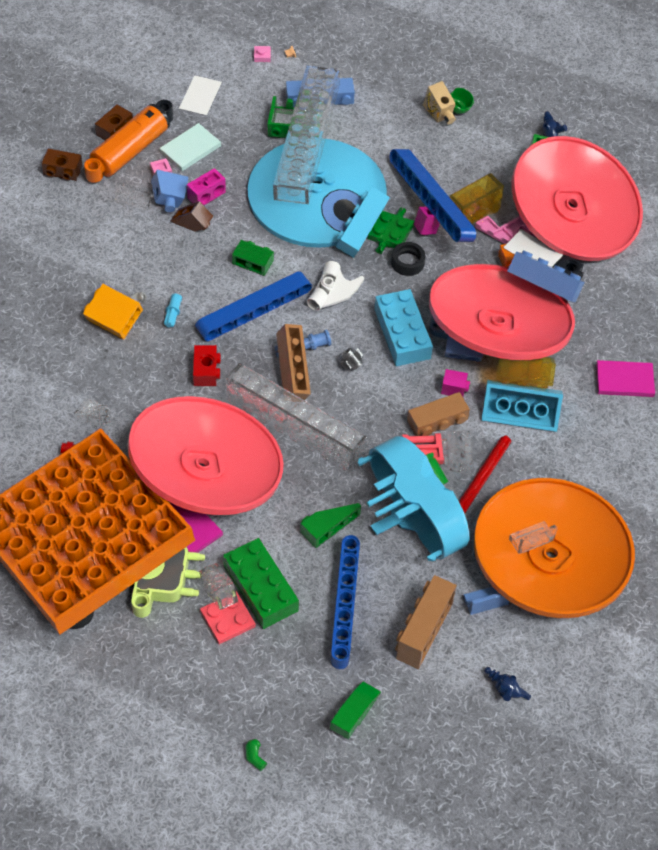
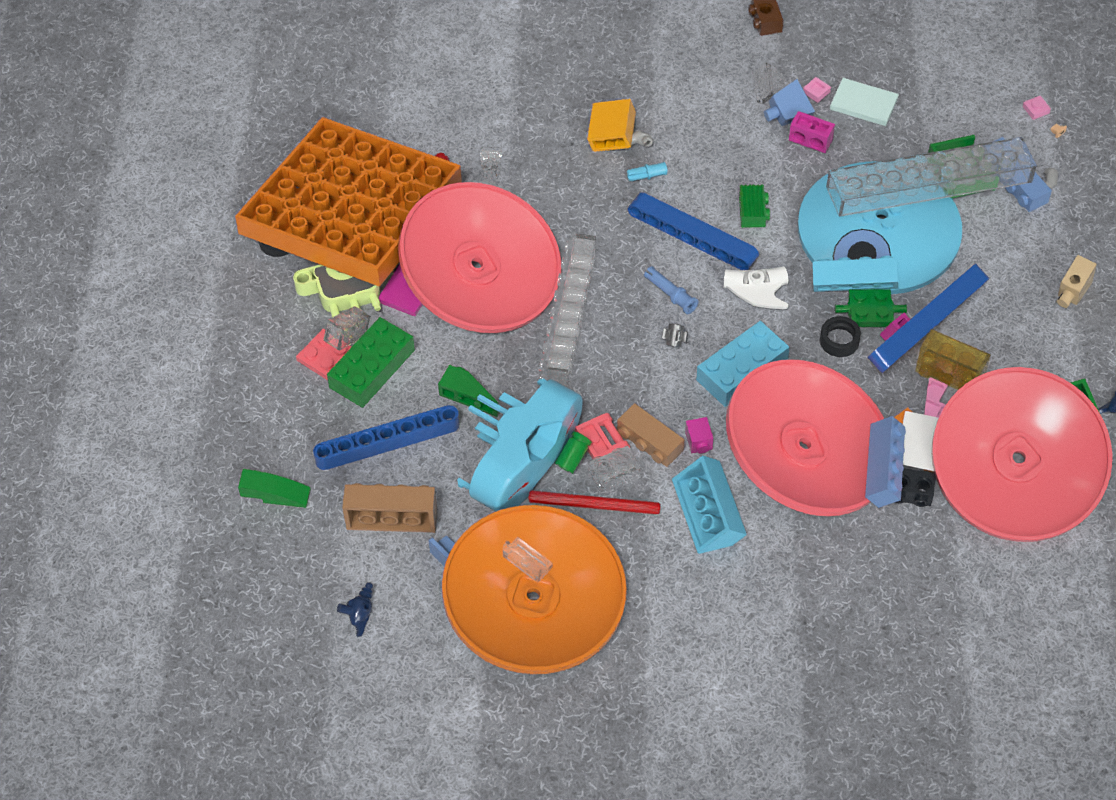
camera: 70 degrees right, 0 degrees up
(112, 121) = (846, 30): reddish brown brick -> none
(128, 141) = (830, 48): orange piece -> none
(193, 217) = (770, 140): reddish brown slope -> none
(200, 95) = (942, 82): white sticker -> none
(205, 365) = (596, 220): red brick -> none
(252, 754) = (191, 429): green arm -> none
(293, 360) = (632, 285): medium nougat brick -> none
(463, 100) = (1097, 300): green hair -> none
(526, 372) = (746, 498): clear yellow brick -> none
(625, 378) = (808, 595): dark pink tile -> none

